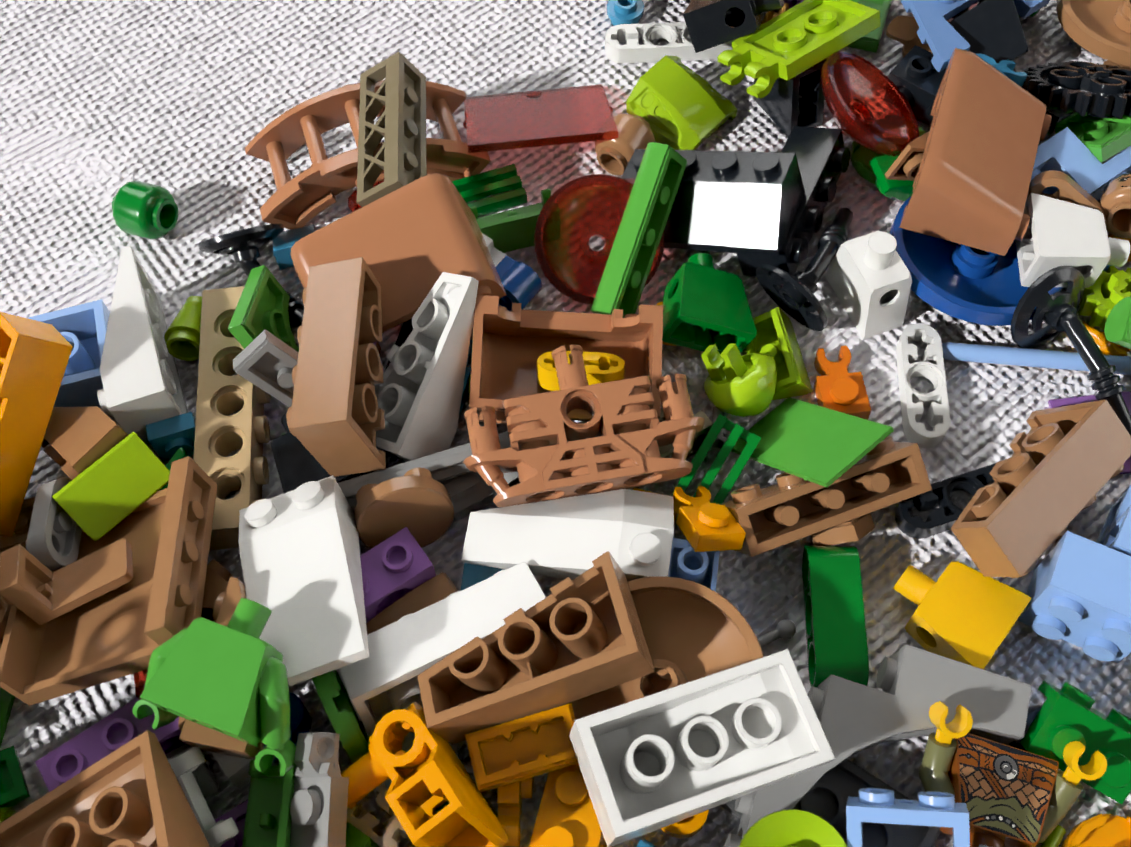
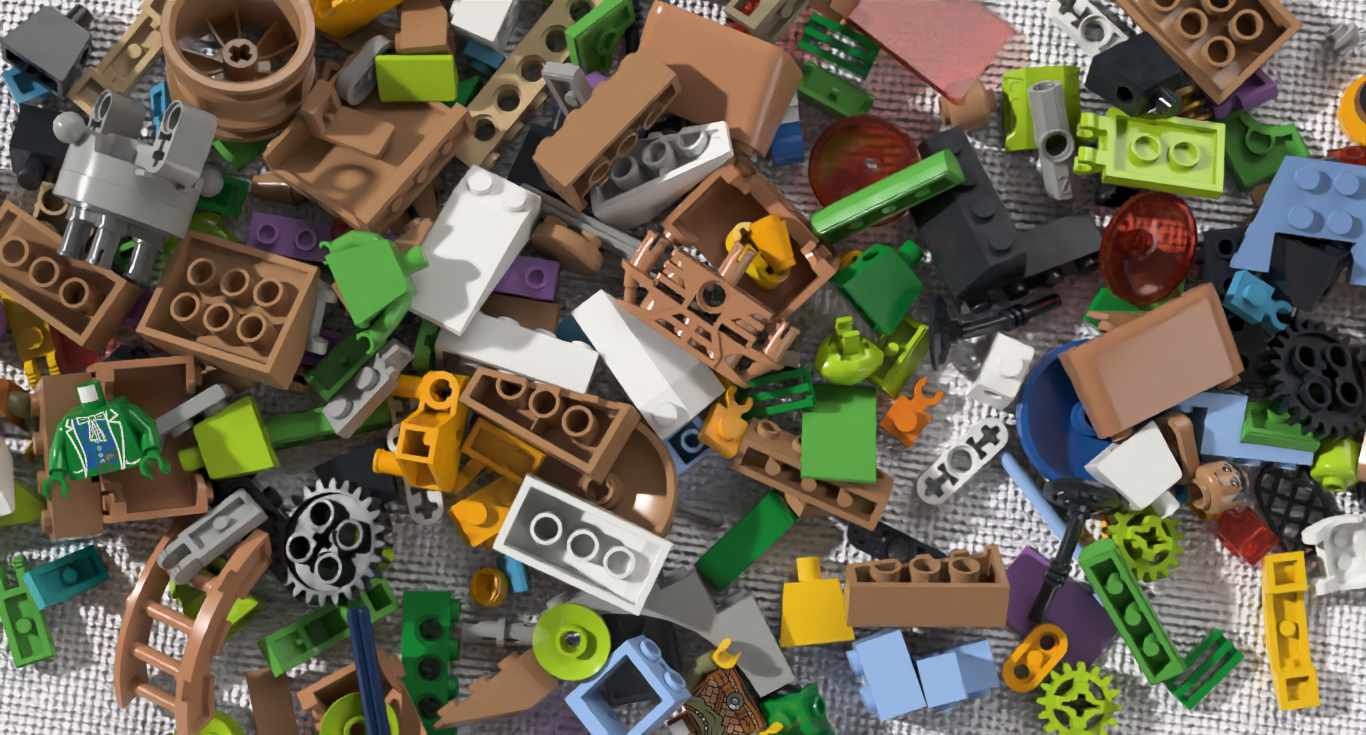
camera: 45 degrees right, 25 degrees up
(56, 722) = (273, 189): none -> medium nougat cone
(596, 342) = (773, 241): none -> light orange cone
(701, 90) = (1048, 119): none -> light grey piece

